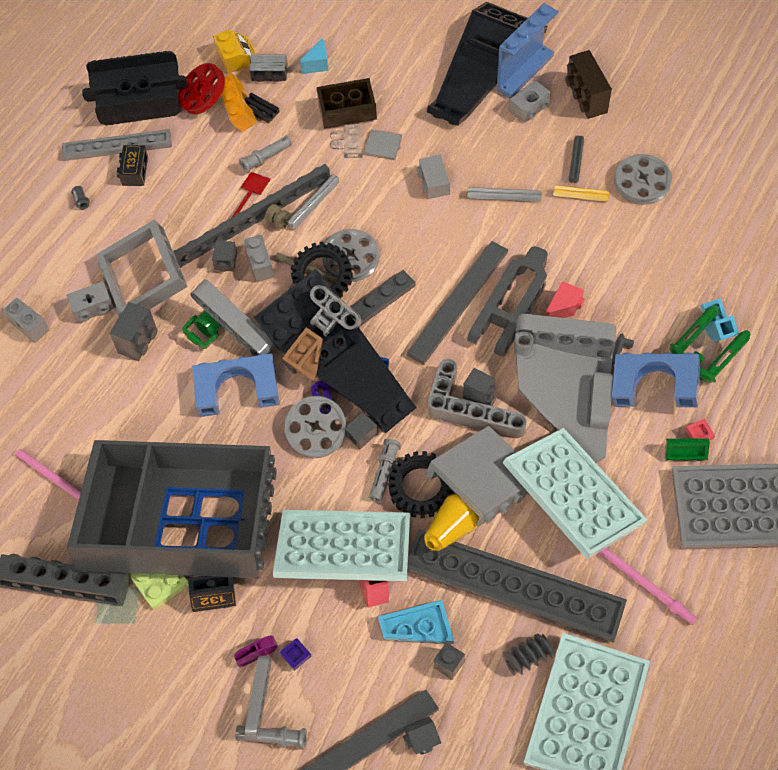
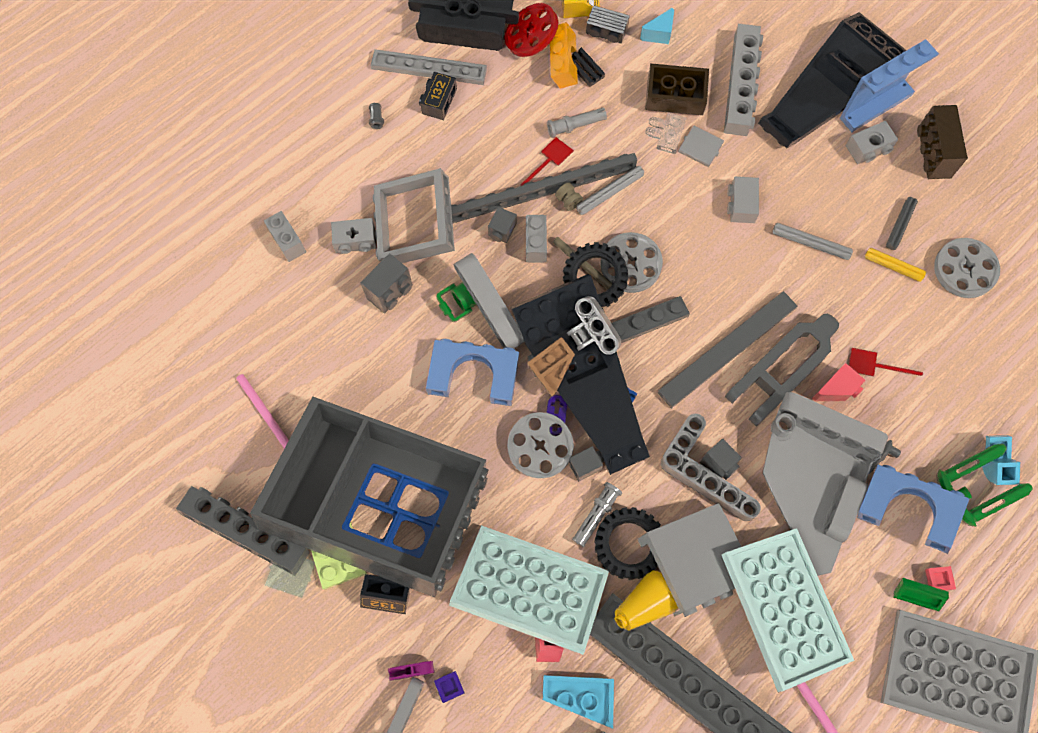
camera: 15 degrees right, 10 degrees up
(402, 81) = (743, 66): none -> light grey brick
(582, 279) = (865, 362): none -> red piece

